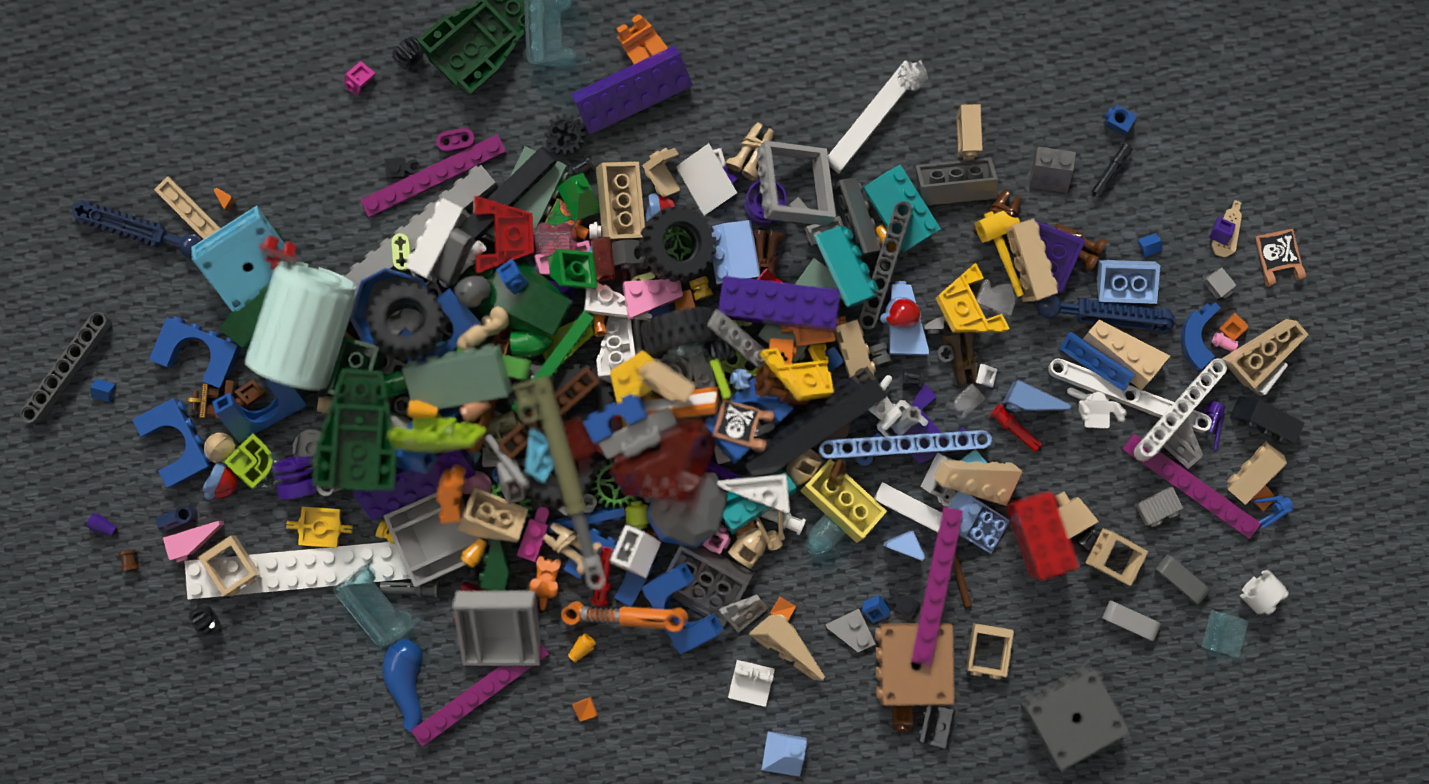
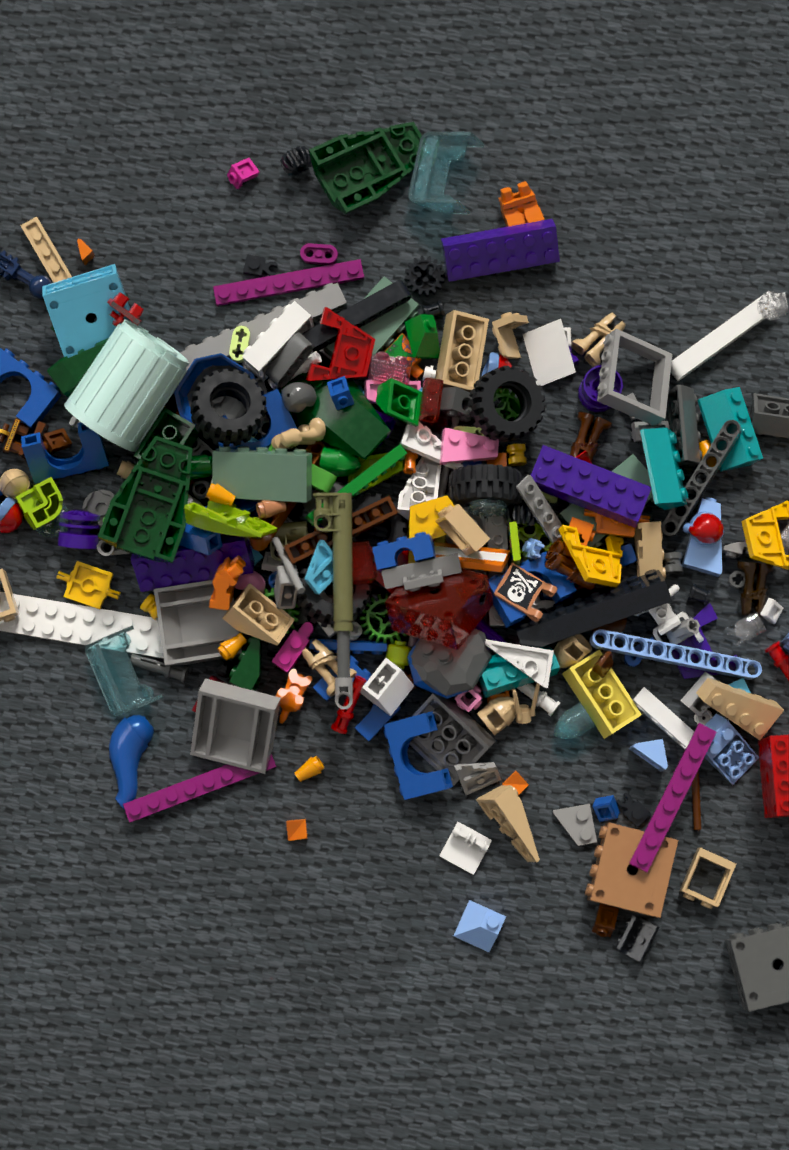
camera: 10 degrees right, 5 degrees down
(627, 616) = (362, 748): orange piece -> none
(735, 251) = (559, 426): light blue slope -> none

